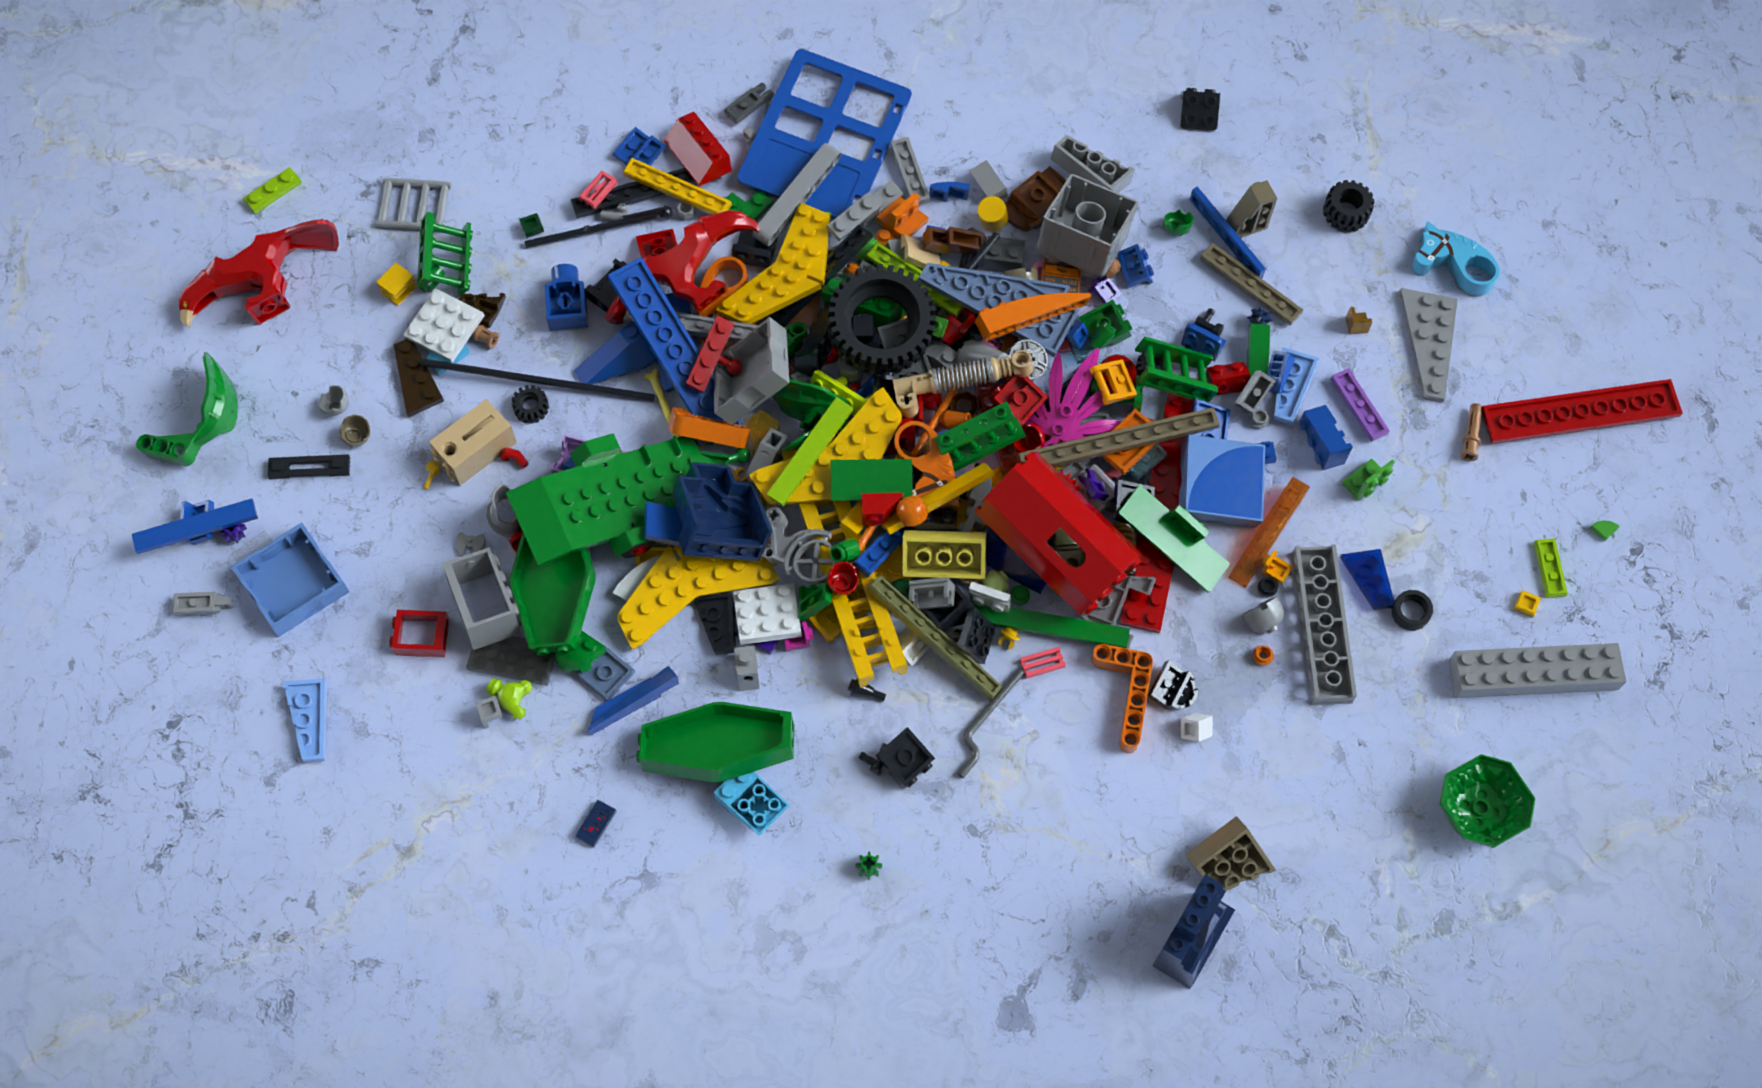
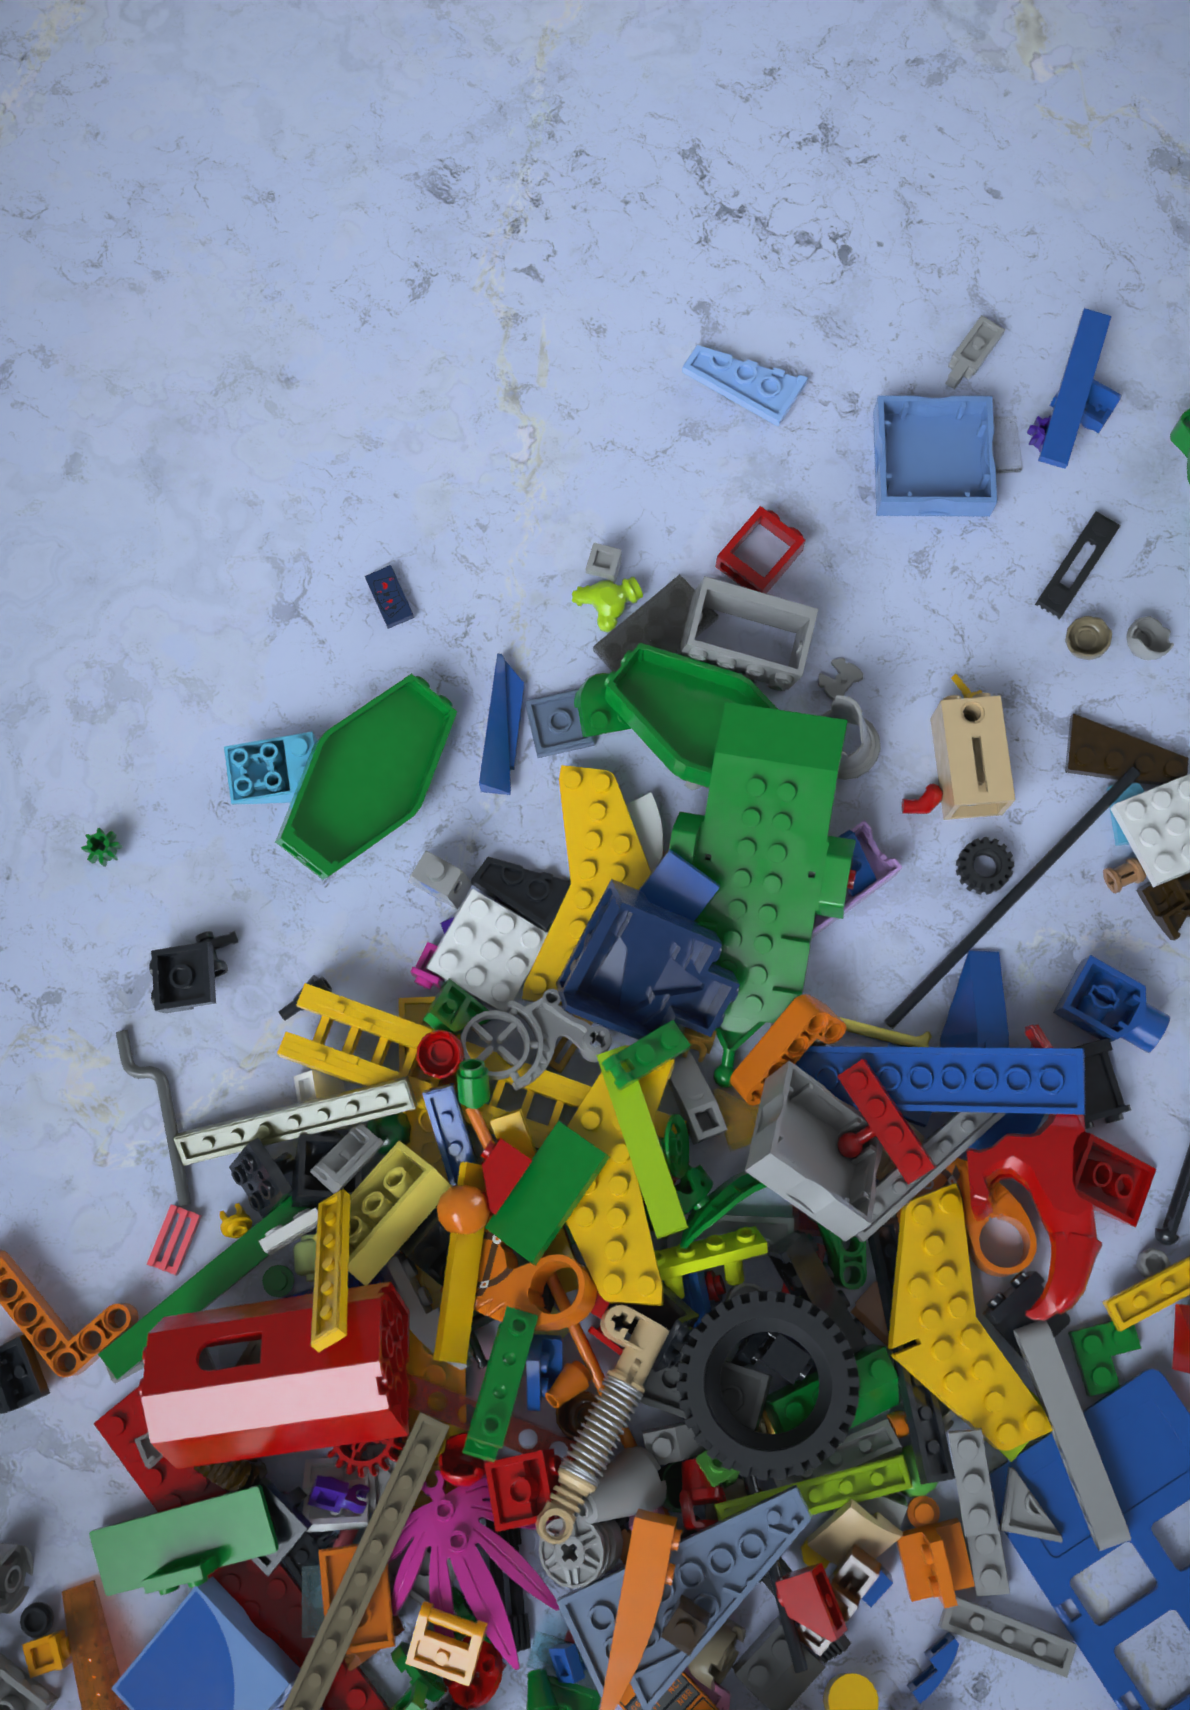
camera: 130 degrees right, 10 degrees up
(764, 478) = (646, 1054): none -> green plate
(848, 195) = (1023, 1513): none -> light grey tile
(963, 246) = (811, 1601): none -> red slope
(990, 537) = (331, 1271): none -> yellow tile
(1017, 285) = (685, 1625): none -> dark brown brick

